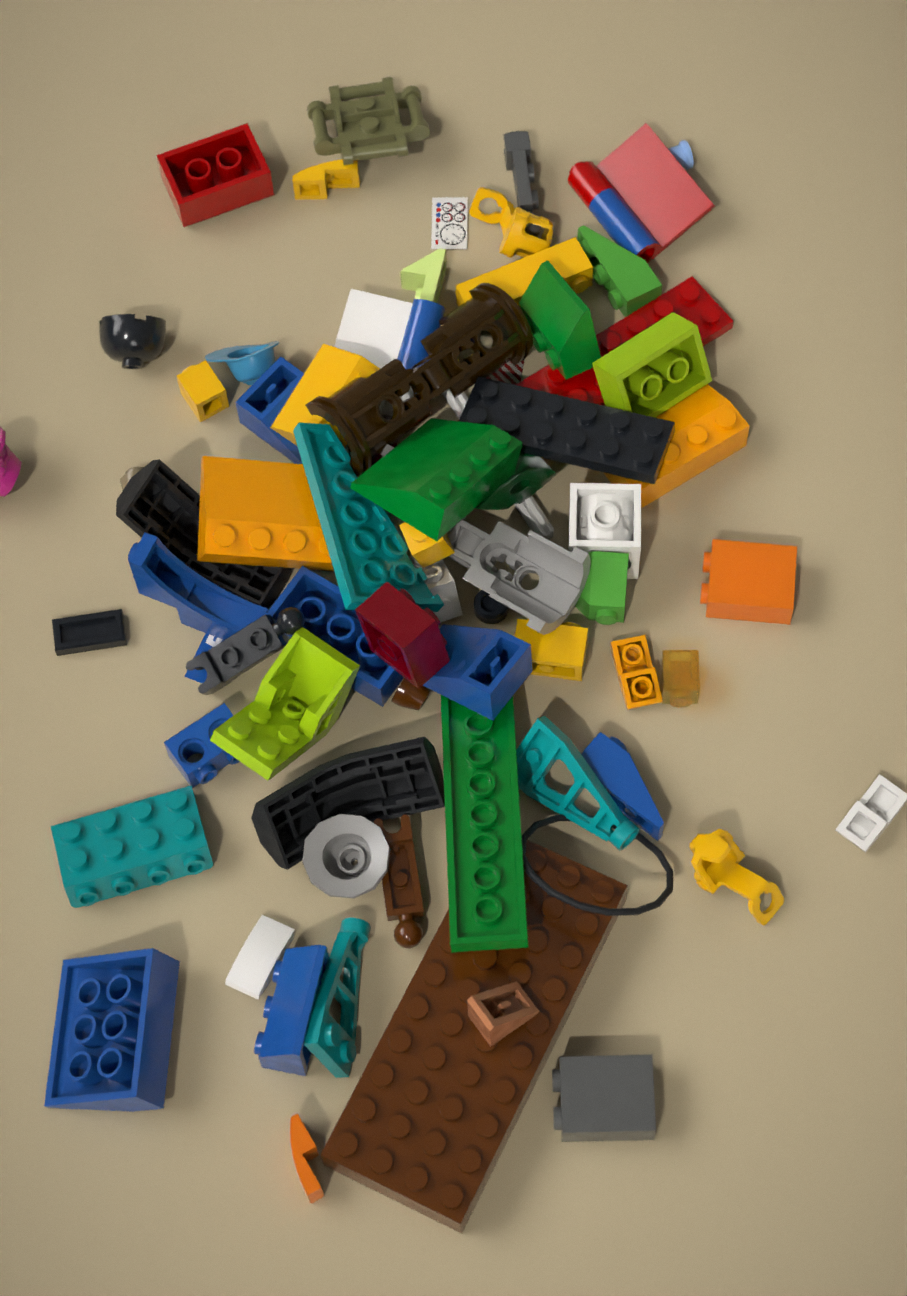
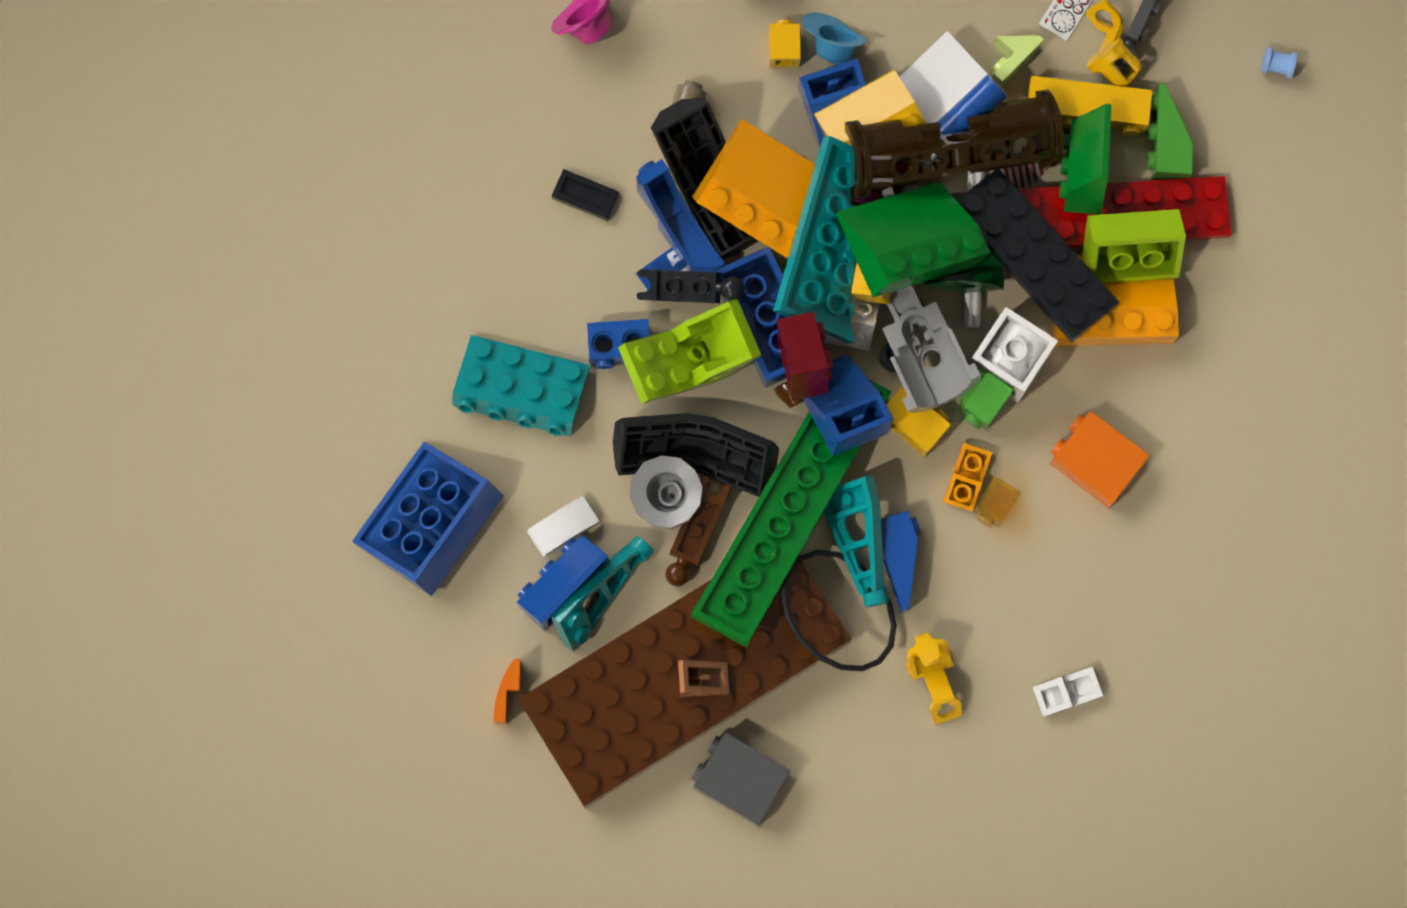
camera: 25 degrees right, 15 degrees up
(640, 194) = (1229, 81): door -> none

